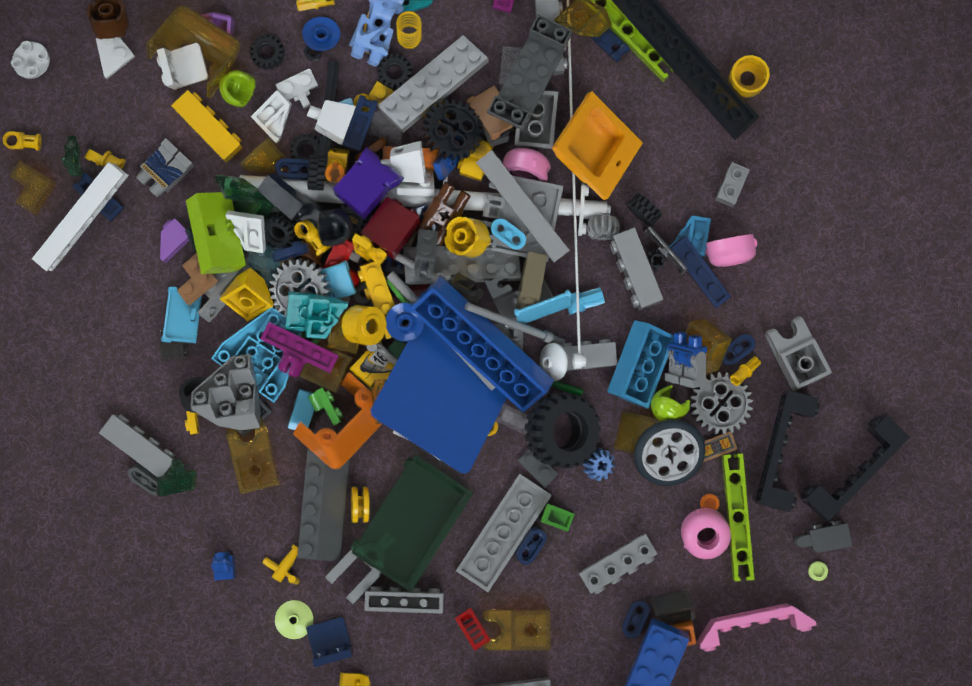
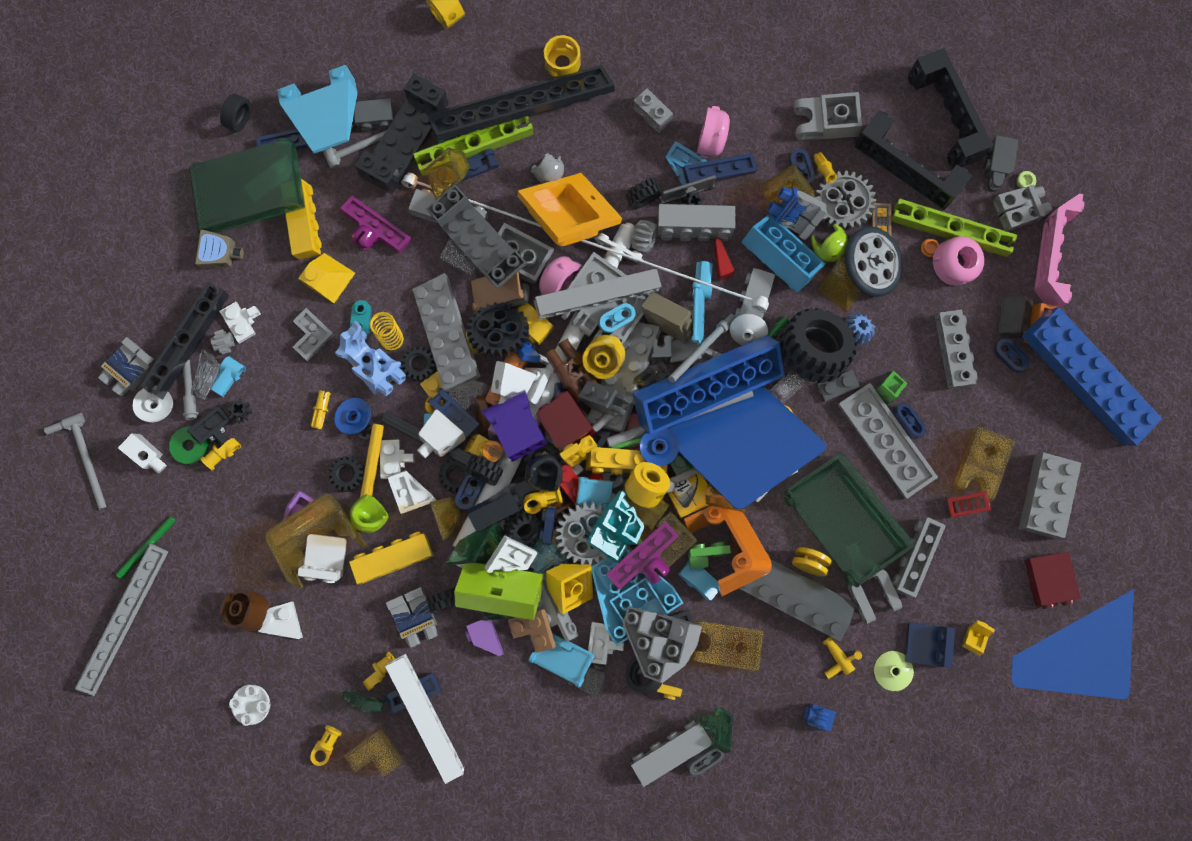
camera: 70 degrees left, 5 degrees down
(186, 185) = (441, 600): none -> black tyre
(208, 344) = (601, 643): none -> white hinge
(288, 69) = (372, 459): none -> yellow axle
(608, 313) = (723, 263): none -> red slope
(630, 111) = (549, 169): none -> light grey helmet
(792, 580) = (1021, 207): none -> light grey hips

